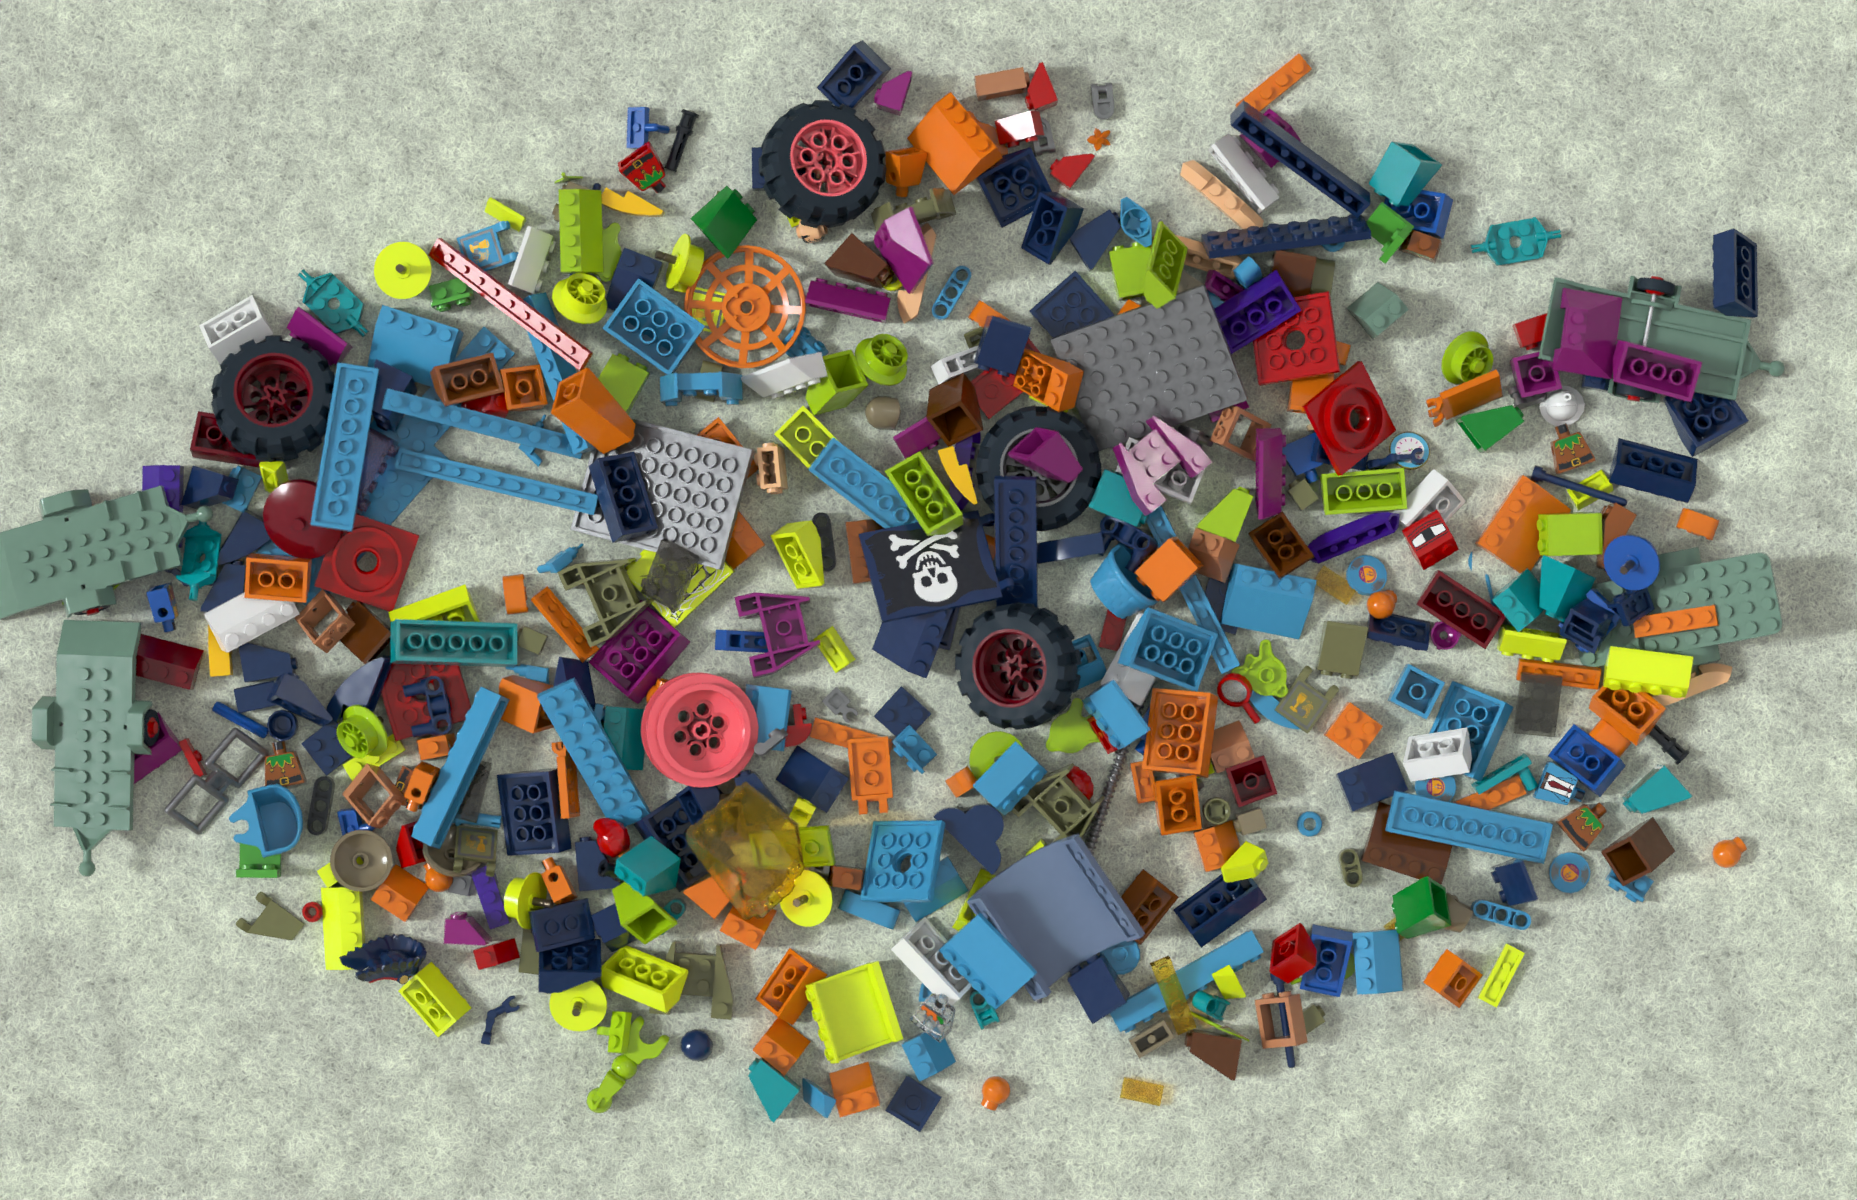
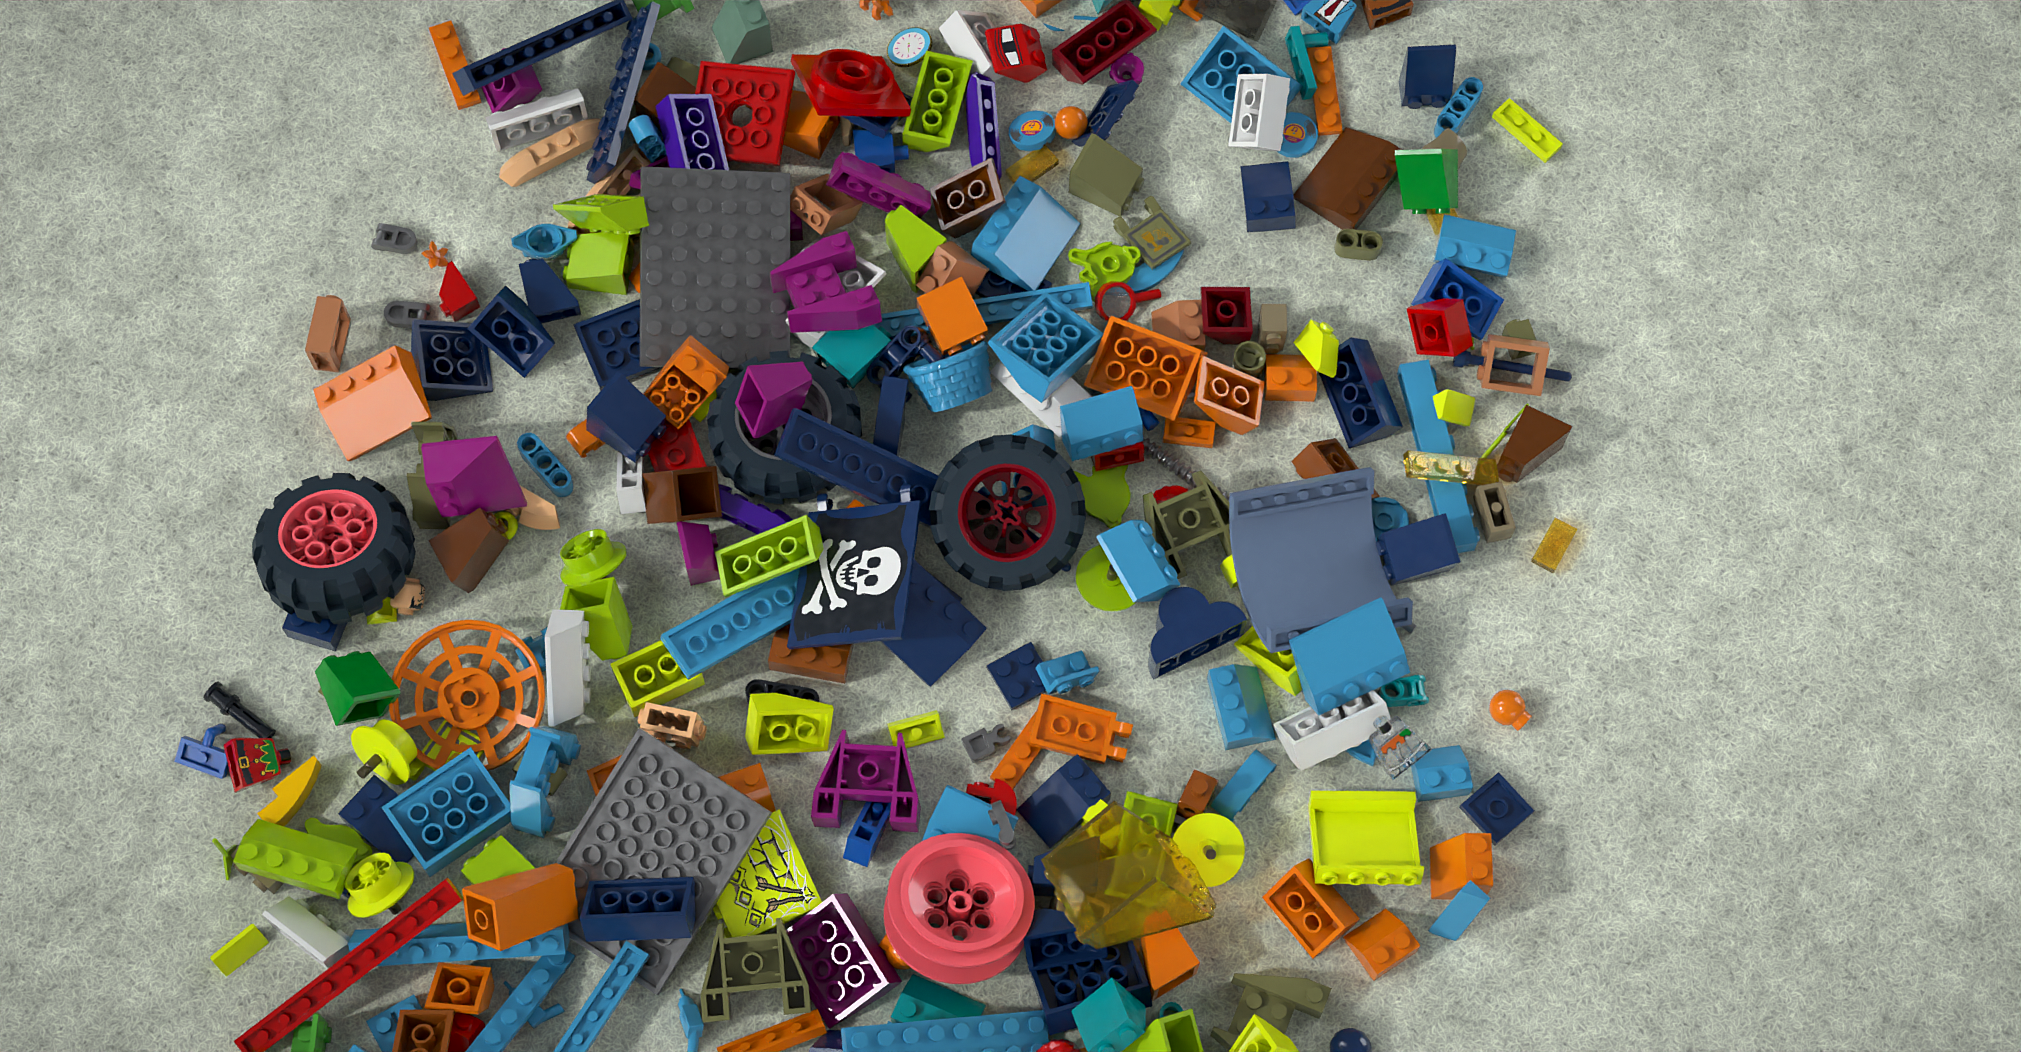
camera: 80 degrees left, 20 degrees down
(485, 247) = (269, 986): dark azure flag -> none
(670, 574) = (755, 879): clear smoke plate -> none
(746, 931) = (1221, 935): orange slope -> none
(772, 1087) = (1431, 966): teal slope -> none
(848, 301) = (511, 578): magenta slope -> none
(854, 76) = (247, 490): dark blue slope -> none
(883, 412) = (656, 580): dark tan piece -> none
(889, 847) = (1170, 722): dark azure piece -> none
(893, 94) = (290, 451): magenta slope -> none
(904, 168) = (381, 465): orange torso -> none
(958, 474) = (759, 514): yellow slope -> none
(961, 781) = (1124, 627): orange beam -> none
(973, 332) = (602, 450): olive slope -> none
(1019, 128) = (386, 328): brick -> none
(1040, 91) = (357, 291): red slope -> none
(1112, 632) = (1000, 413): red plate -> none
(1209, 1004) = (1473, 436): teal piece -> none
(1300, 823) = (1290, 282): dark azure piece -> none
(1302, 493) = (917, 167): olive brick -> none
(1353, 730) = (1202, 194): orange brick -> none
(1378, 464) = (912, 59): dark blue piece -> none
(1416, 691) = (1180, 117): dark azure brick -> none
(1452, 978) = (1515, 178): orange slope -> none
(1469, 827) = (1348, 110): dark azure plate -> none
(1569, 872) = (1431, 28): dark azure tile -> none

